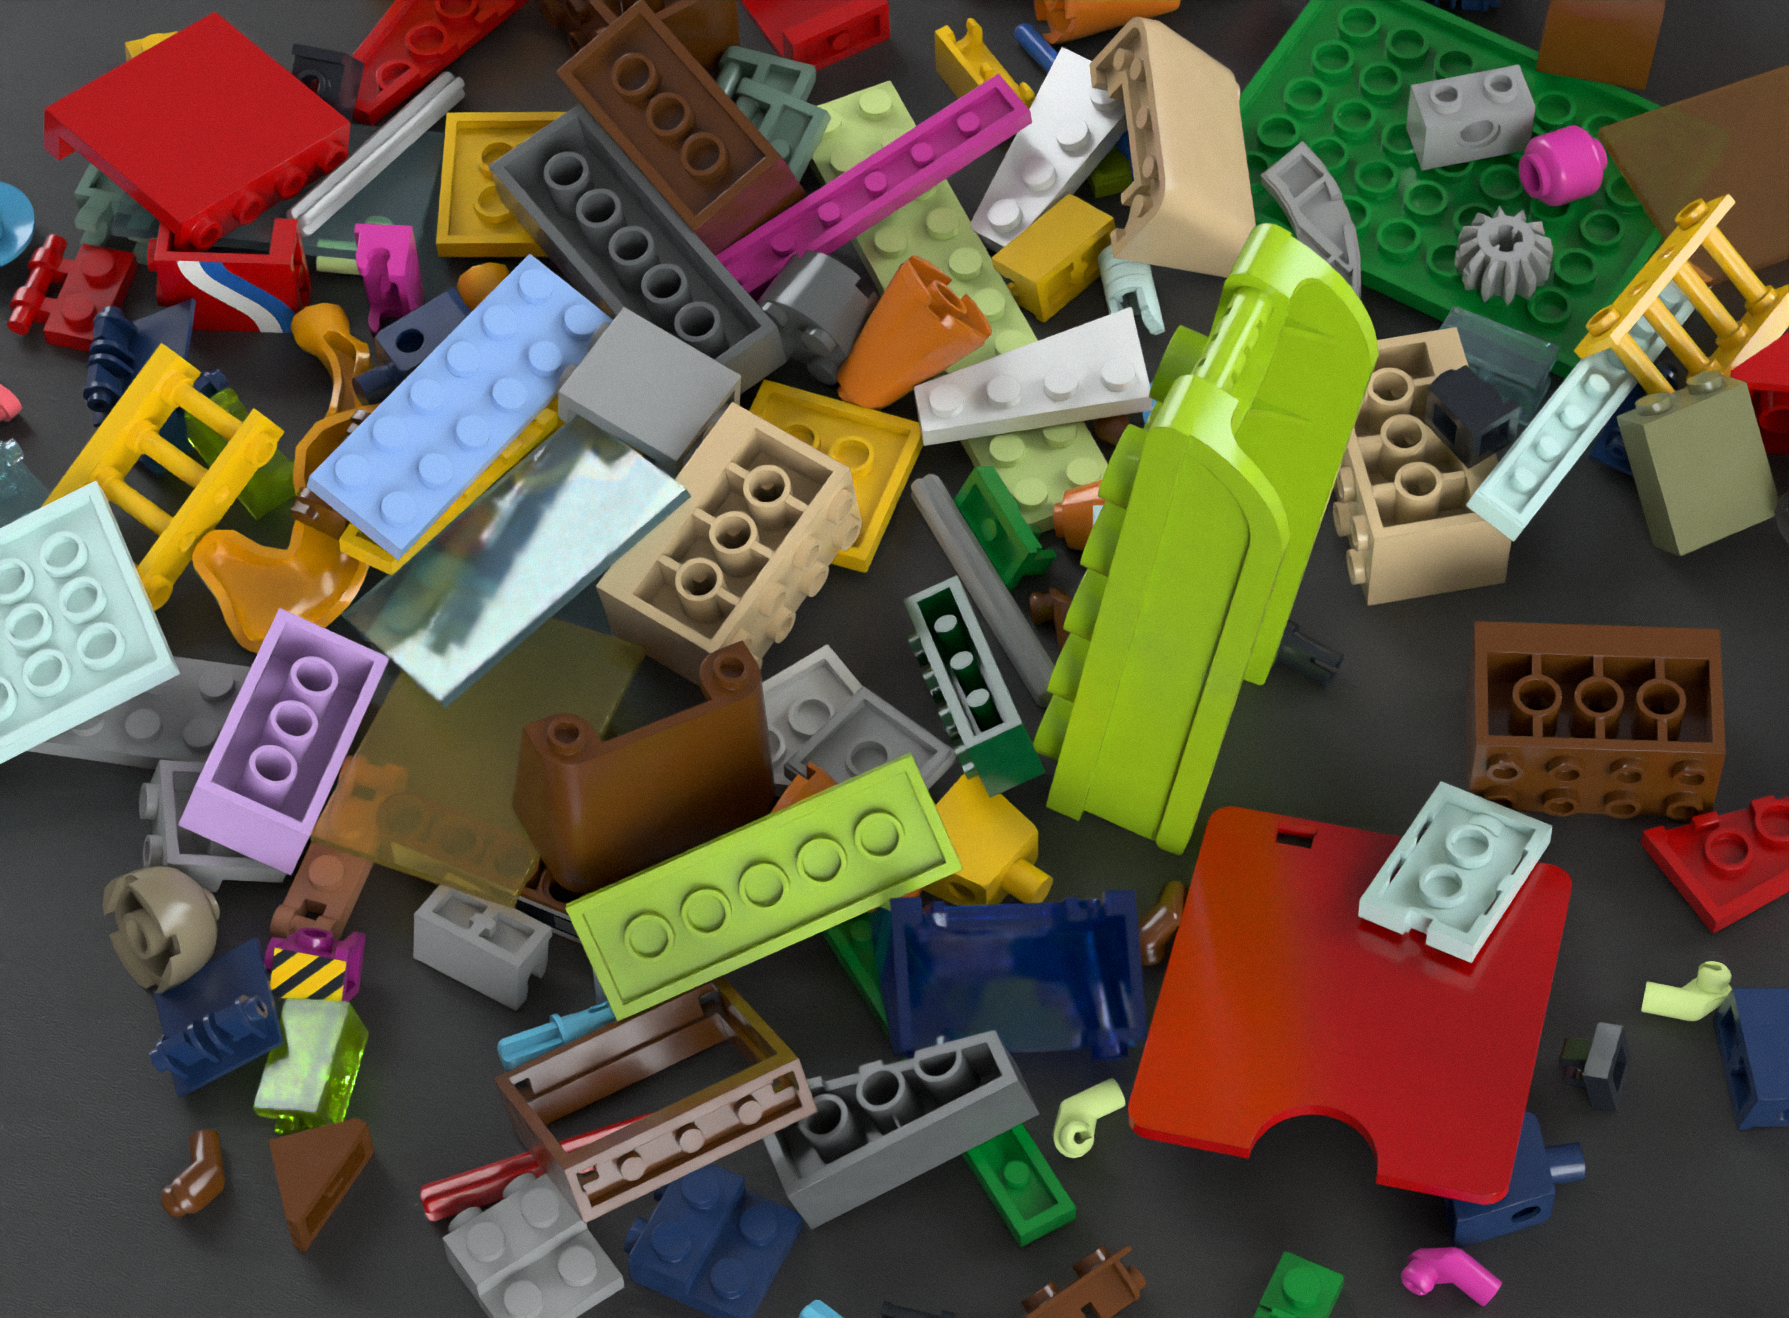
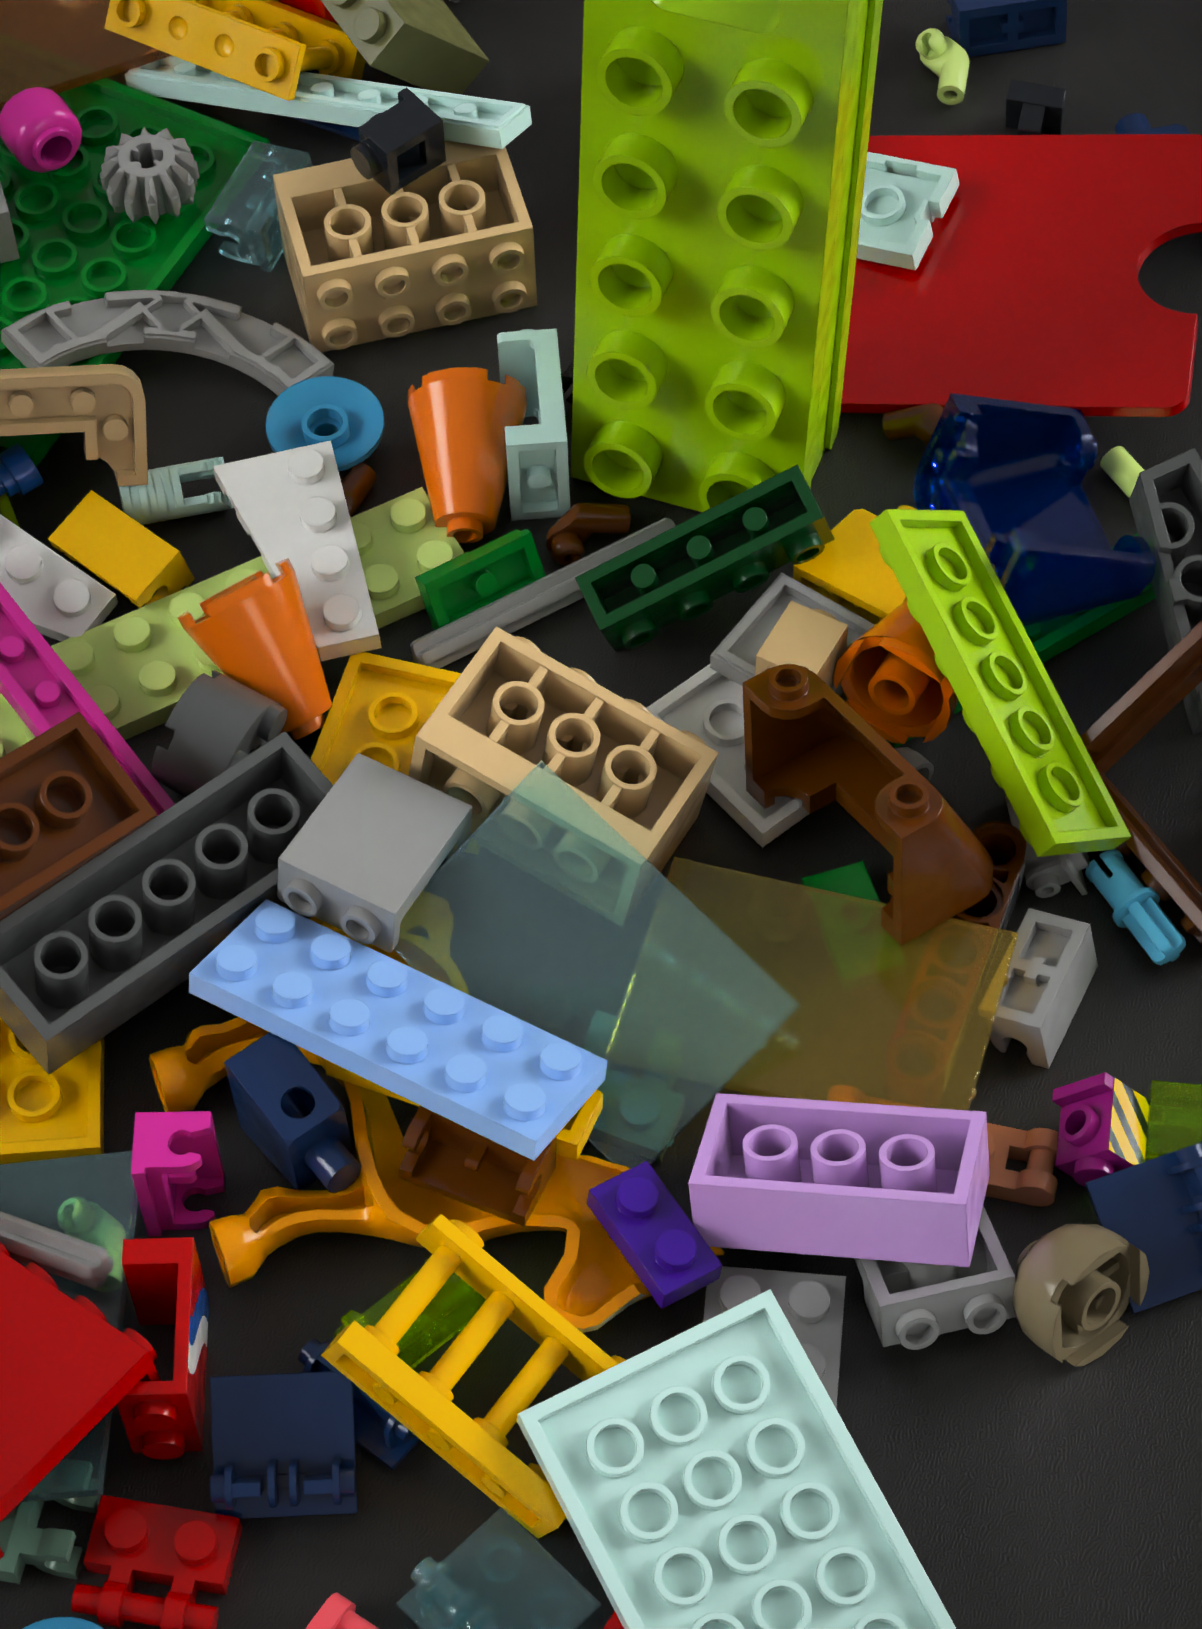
camera: 95 degrees left, 0 degrees up
(246, 612) = (654, 1234): none -> dark purple plate
(826, 734) = (804, 639): none -> tan brick

